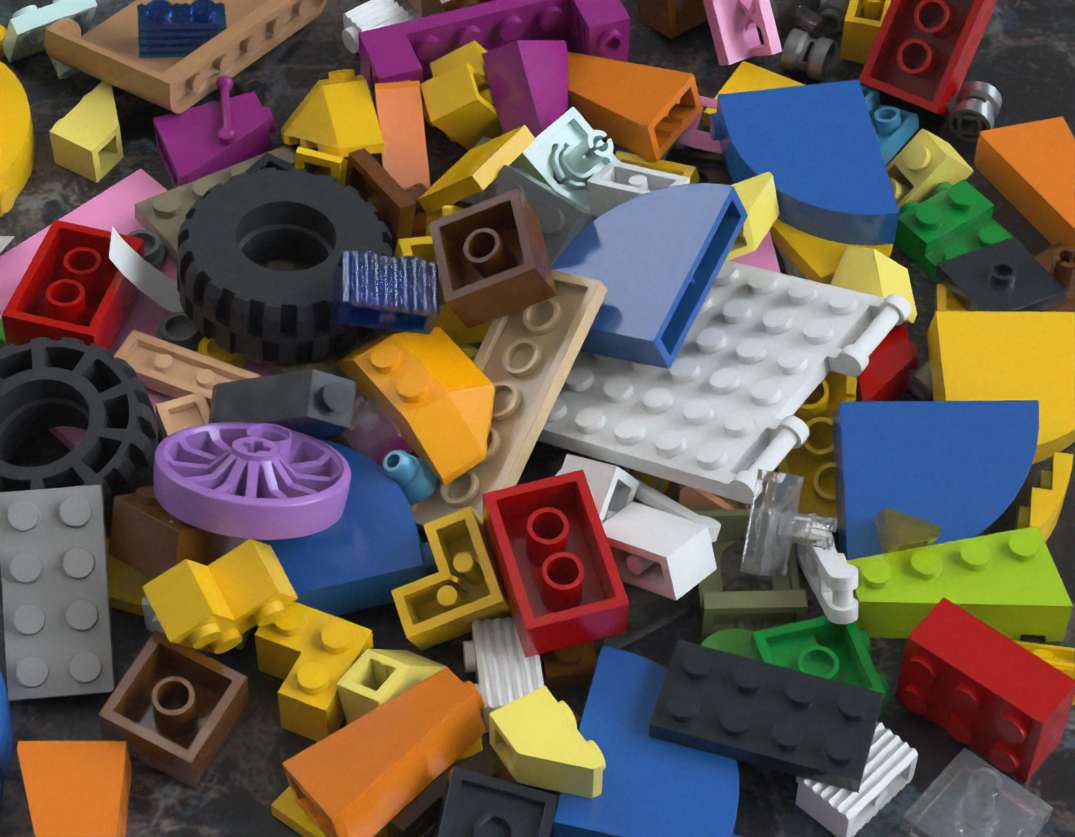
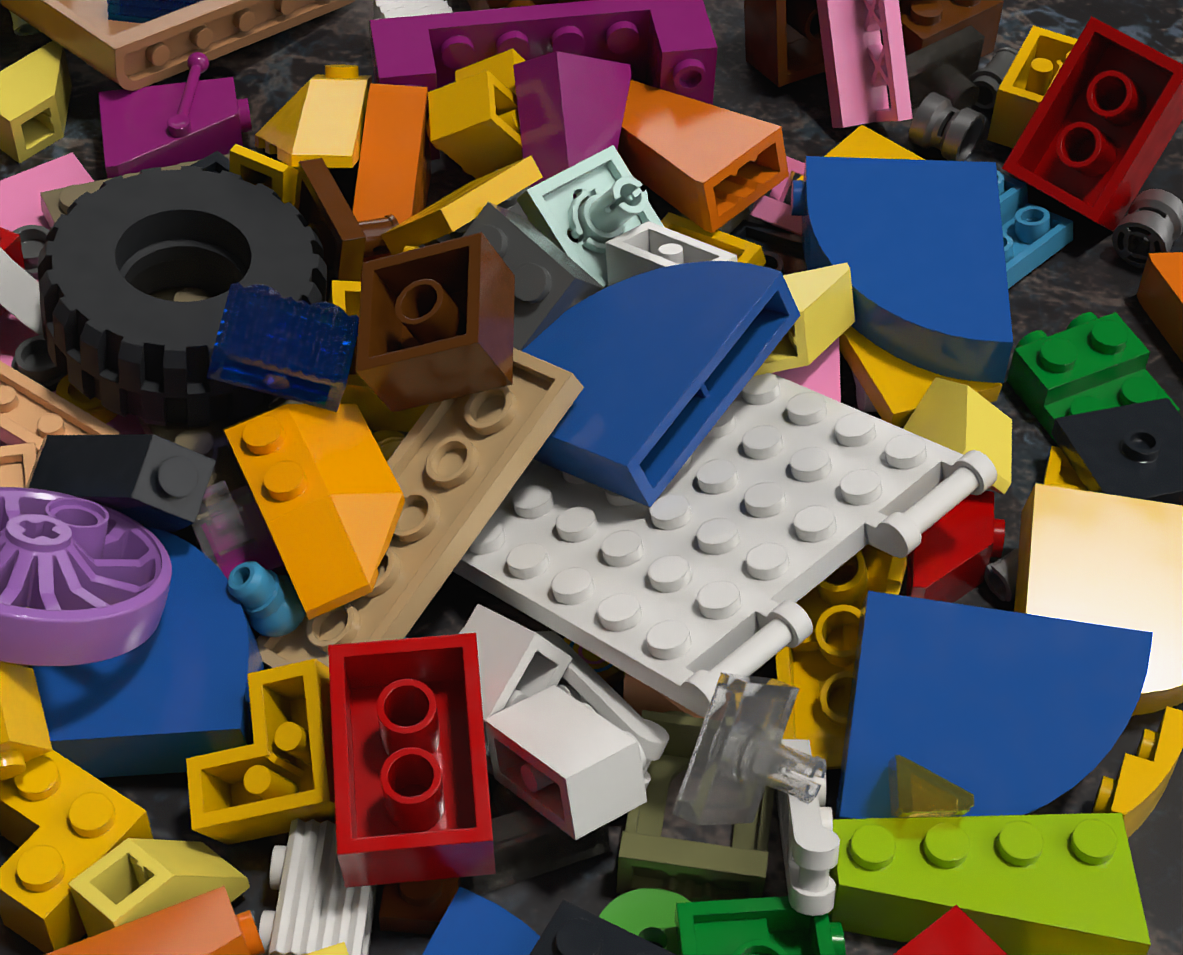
camera: 10 degrees right, 0 degrees up
(923, 166) = (1061, 289): light yellow slope -> none

